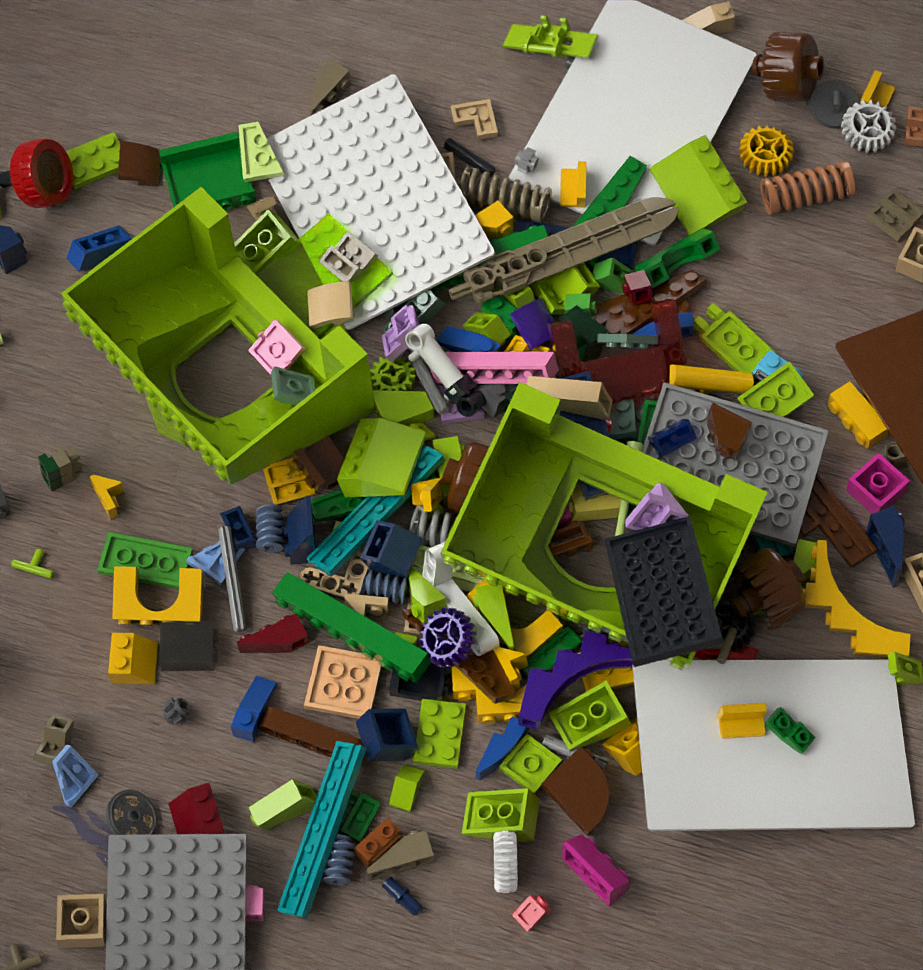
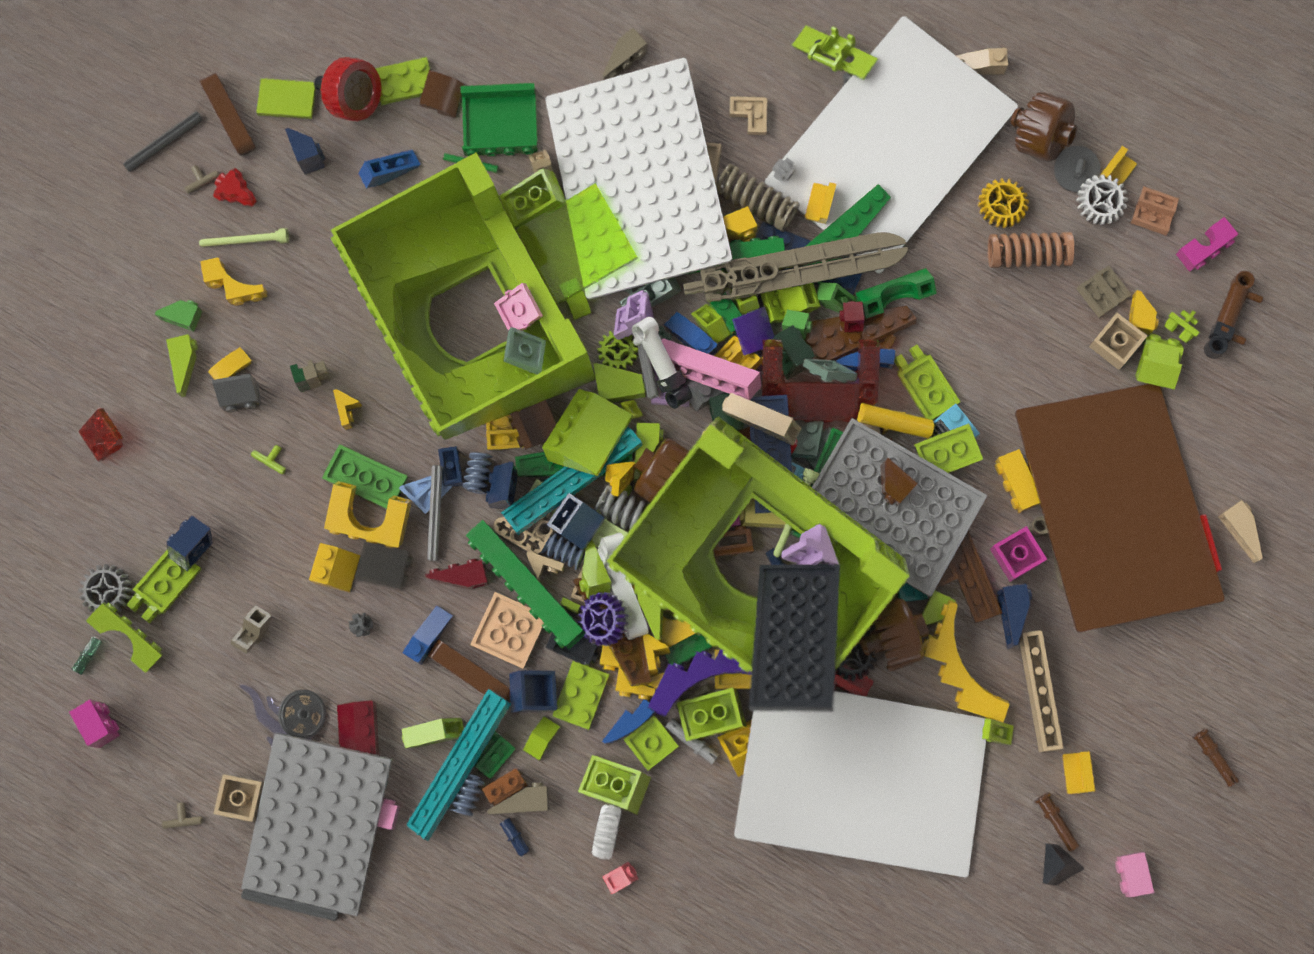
camera: 15 degrees right, 15 degrees up
(73, 774) = (261, 663): light blue wing -> none
(256, 154) = (546, 108): yellowish green wing -> none
(330, 304) = (575, 275): tan slope -> none
(348, 258) = (601, 234): slope -> none
(468, 156) = (735, 150): black axle -> none
(579, 789) = (686, 779): reddish brown brick -> none
(595, 868) = (684, 852): dark pink slope -> none
(672, 437) = (846, 472): clear blue slope -> none
(698, 185) = (932, 226): lime slope -> none
(725, 648) = (844, 678): dark tan piece -> none
(742, 720) = (840, 755): yellow panel -> none
(789, 731) = (880, 770): green slope -> none

